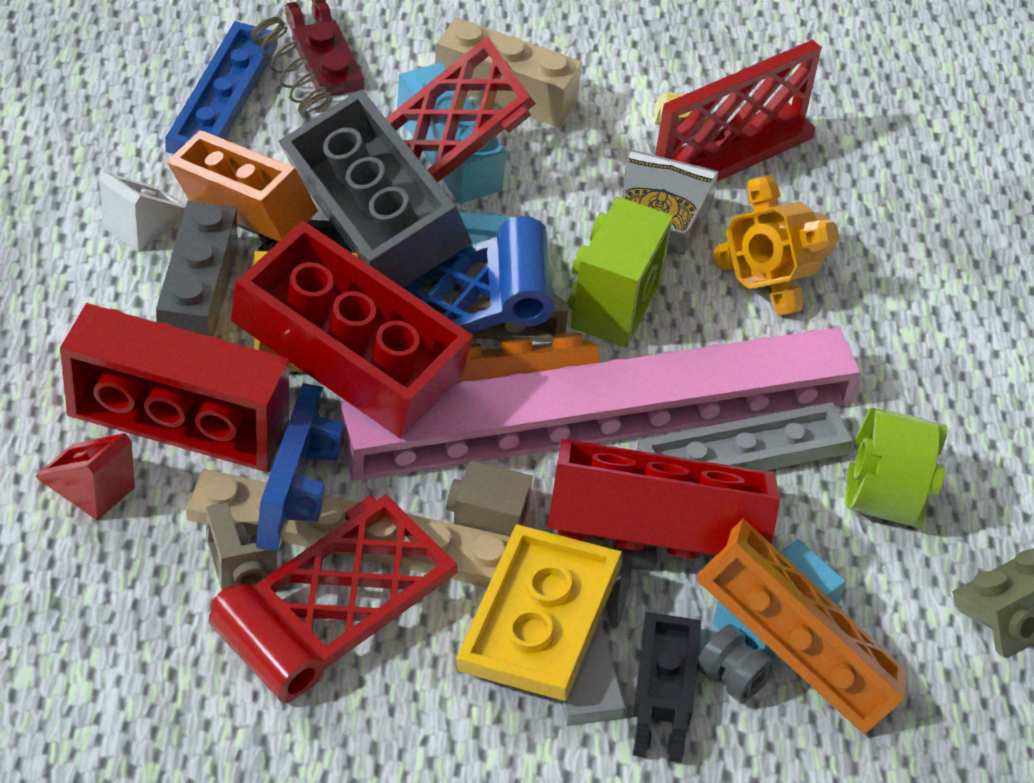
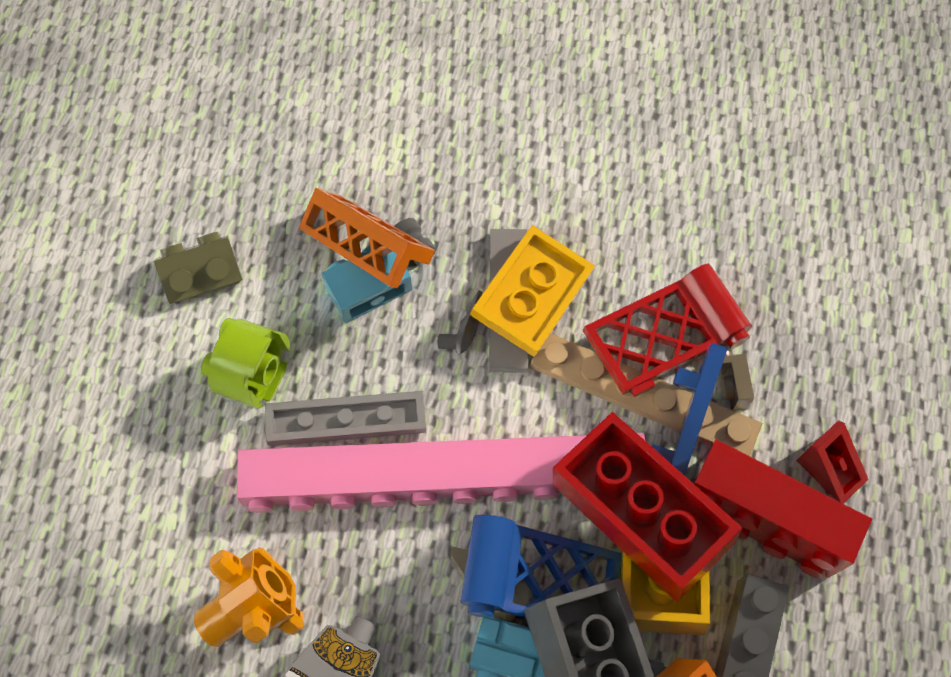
camera: 165 degrees left, 20 degrees up
(490, 498) = (547, 390): dark tan brick -> none
(521, 356) = (556, 518): orange plate -> none
(619, 271) = (398, 582): lime brick -> none
(657, 499) = (428, 351): red brick -> none
(666, 680) = (457, 246): black hinge -> none

